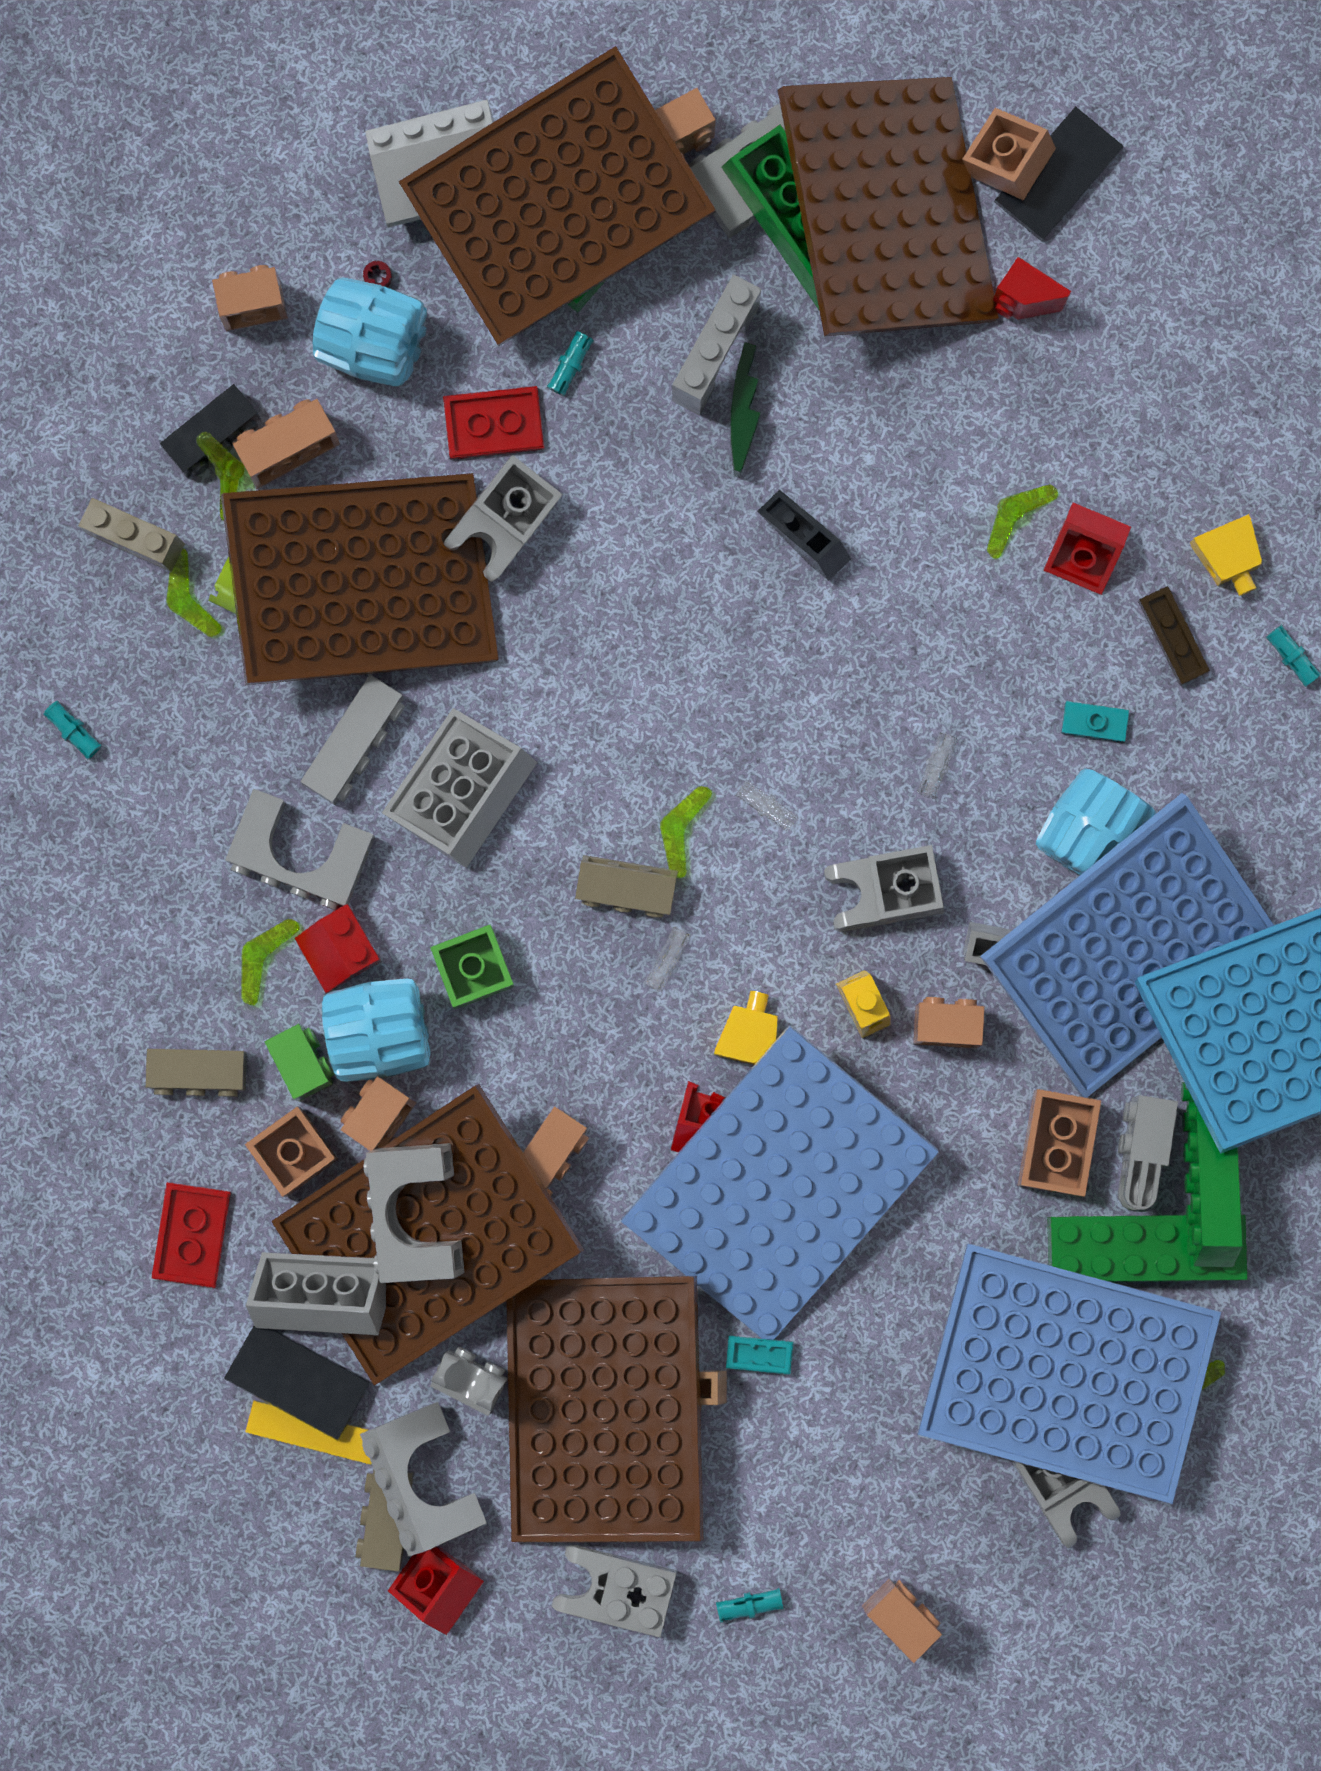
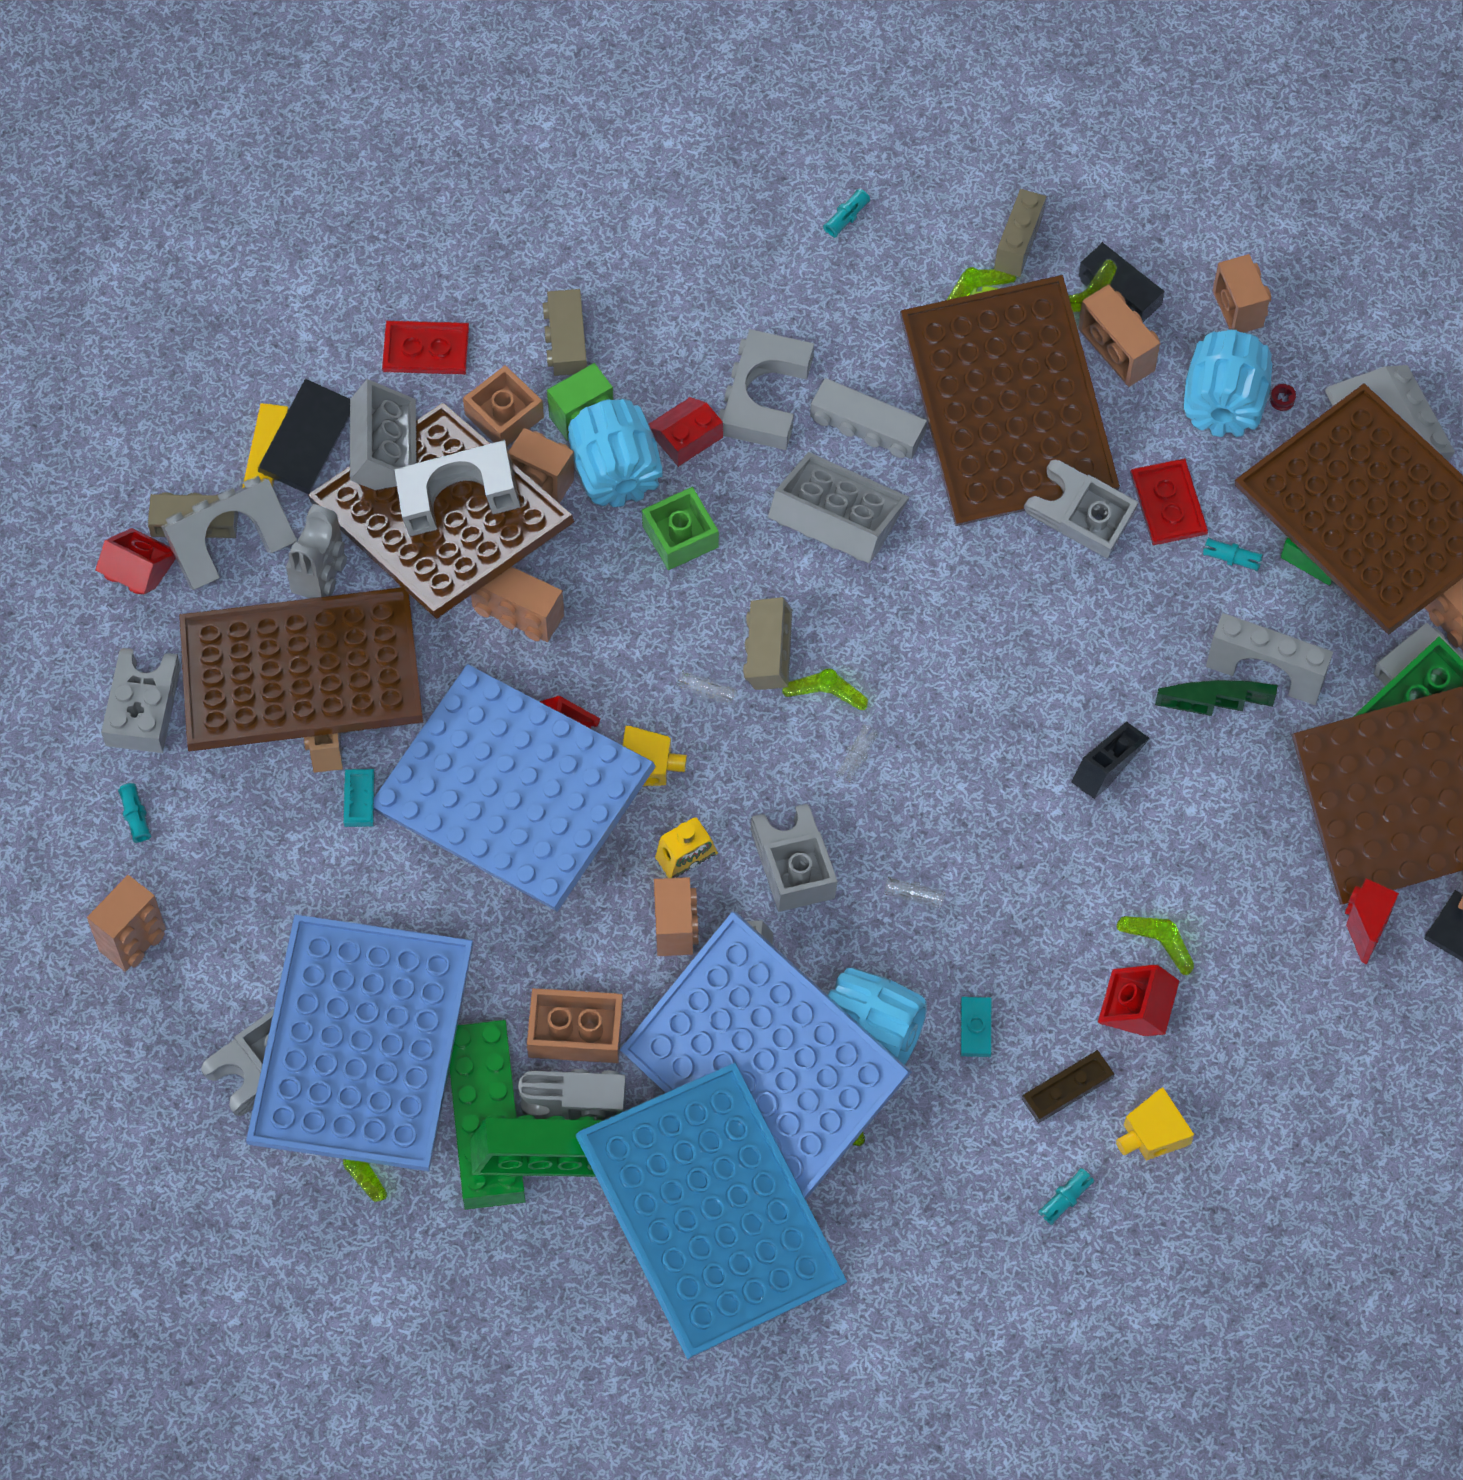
camera: 85 degrees right, 20 degrees down
(254, 954) = (673, 369): clear neon green piece -> none

